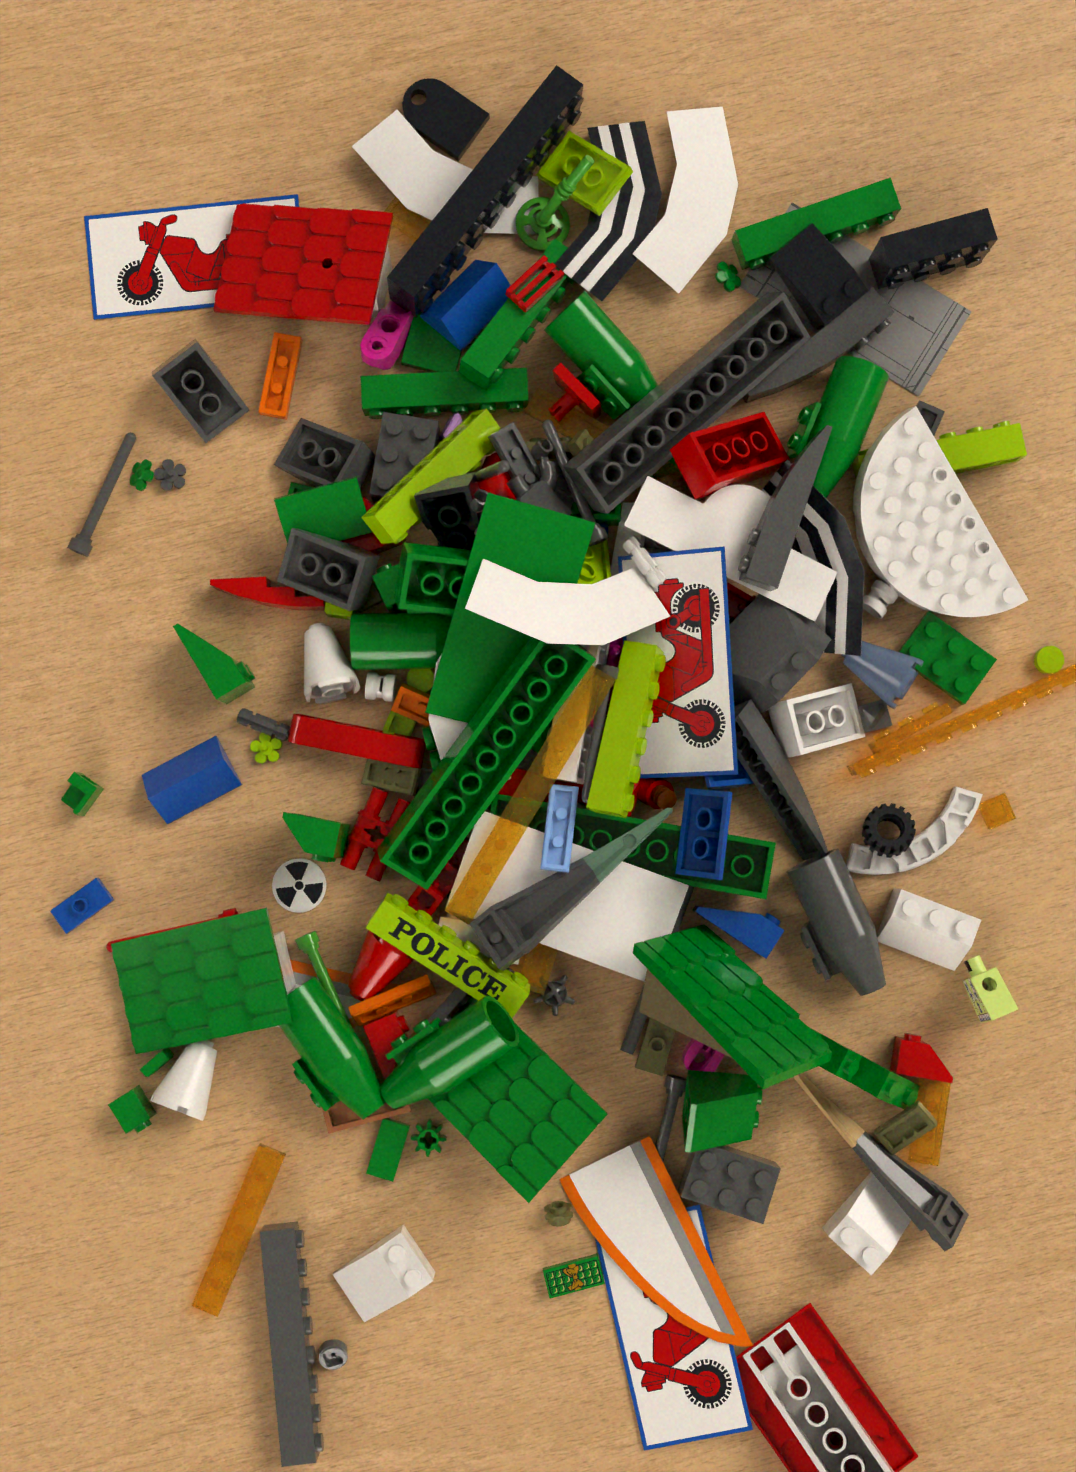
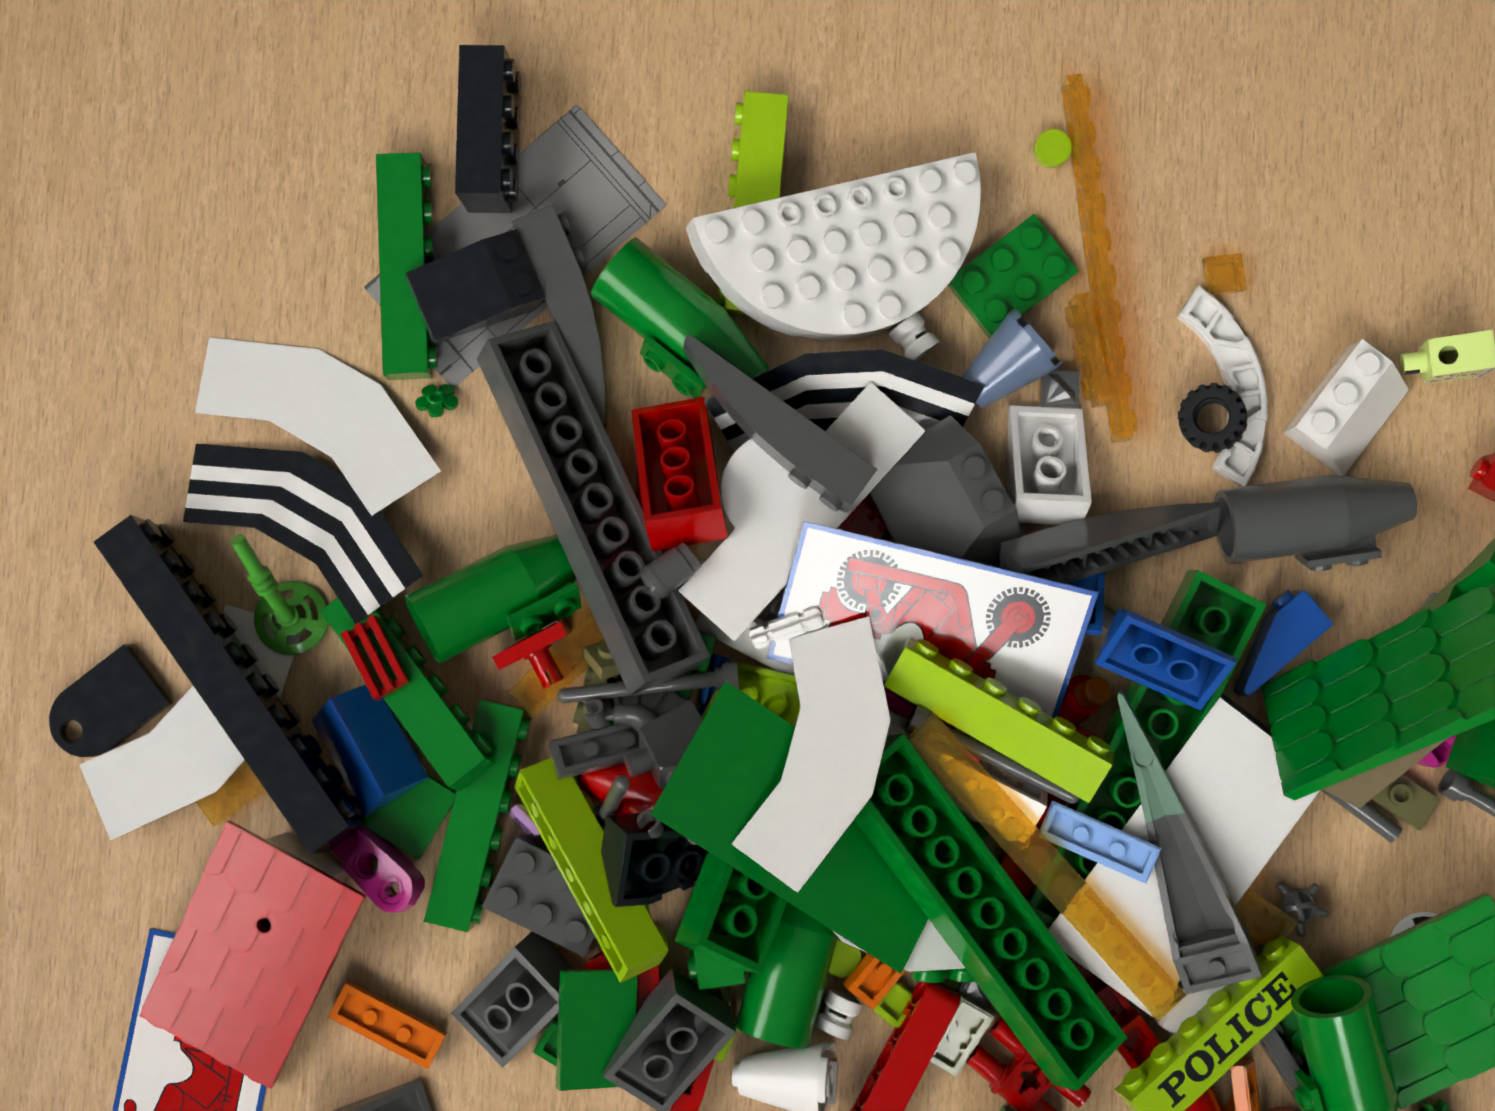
camera: 70 degrees left, 0 degrees up
(598, 184) = (265, 528): lime tile -> none
(659, 464) = (669, 570): none -> dark grey piece
(931, 415) = (699, 202): dark grey plate -> none

